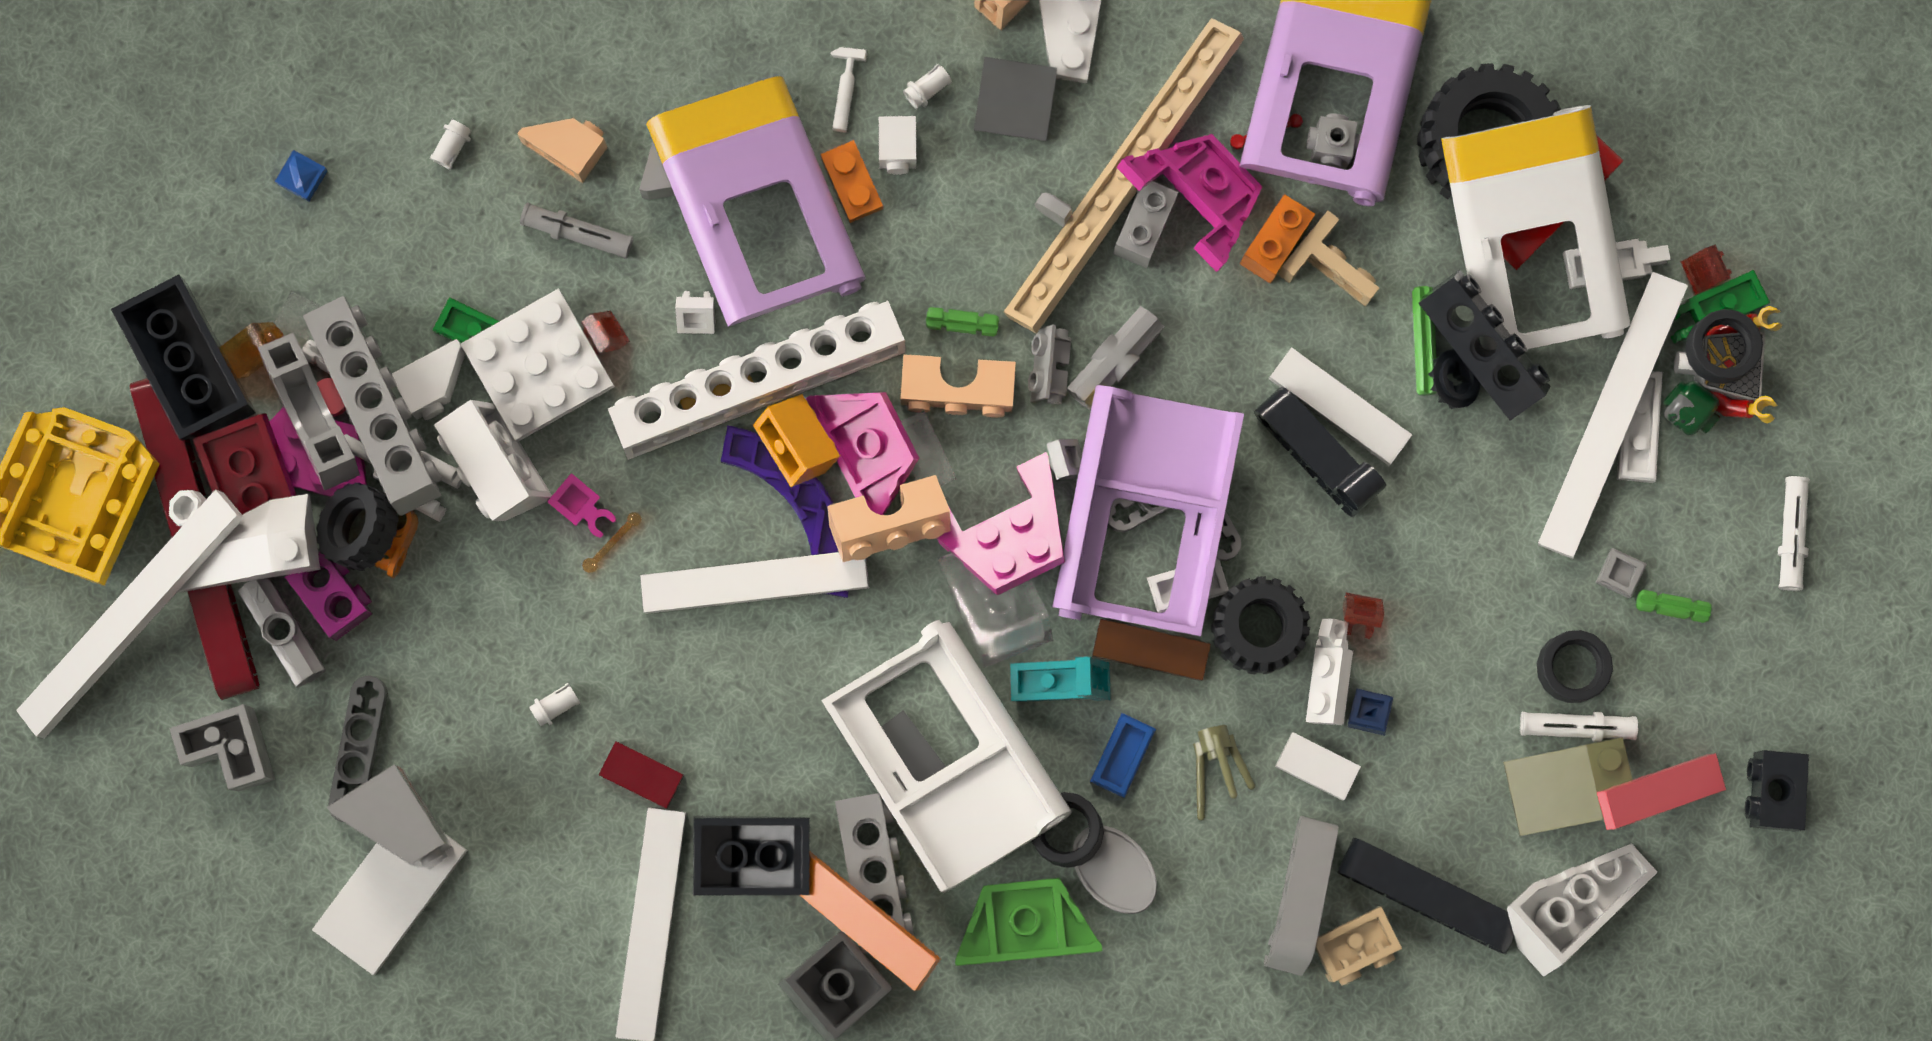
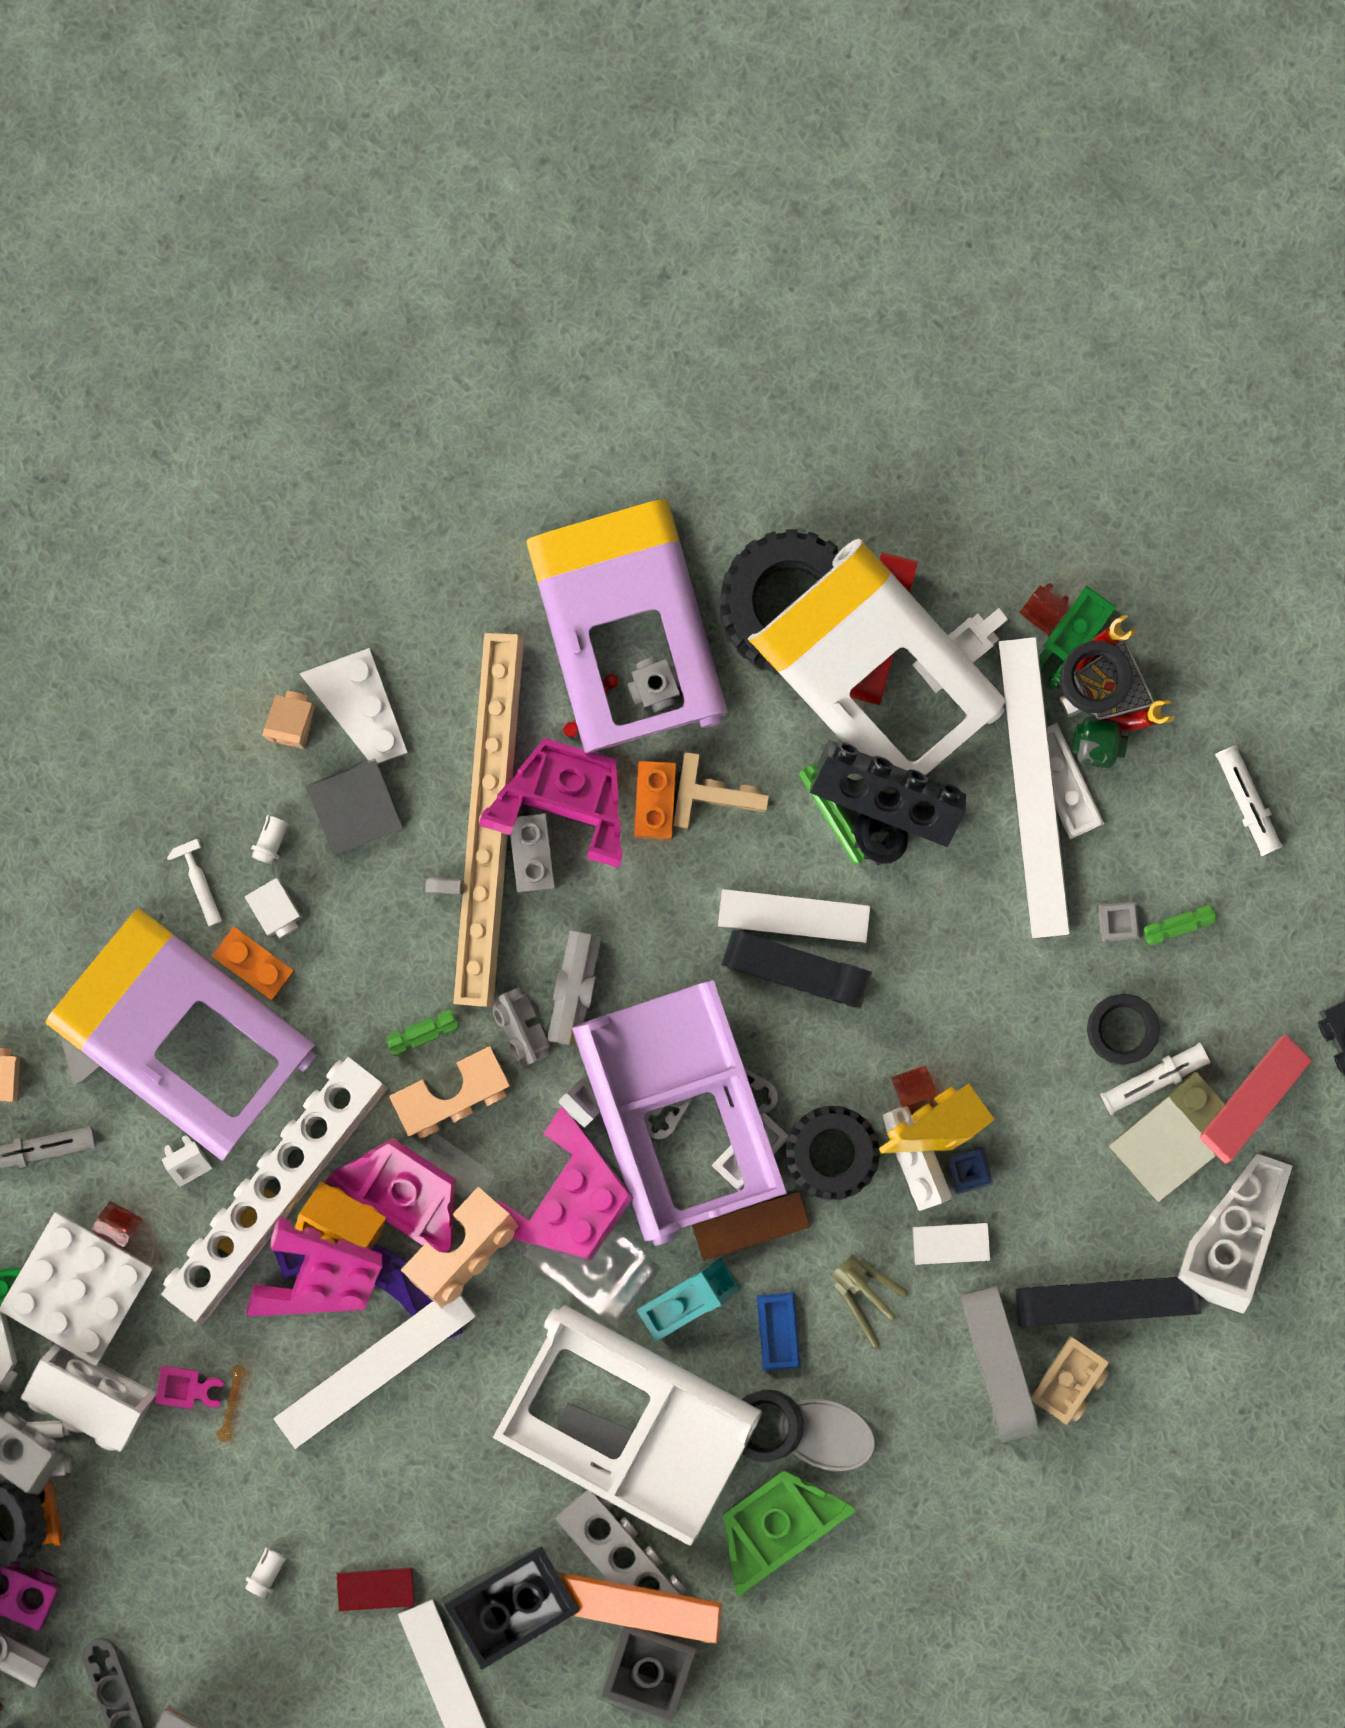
camera: 20 degrees left, 5 degrees up
(763, 481) = (329, 1280): none -> dark pink wing
(1369, 656) = (941, 1128): none -> yellow slope

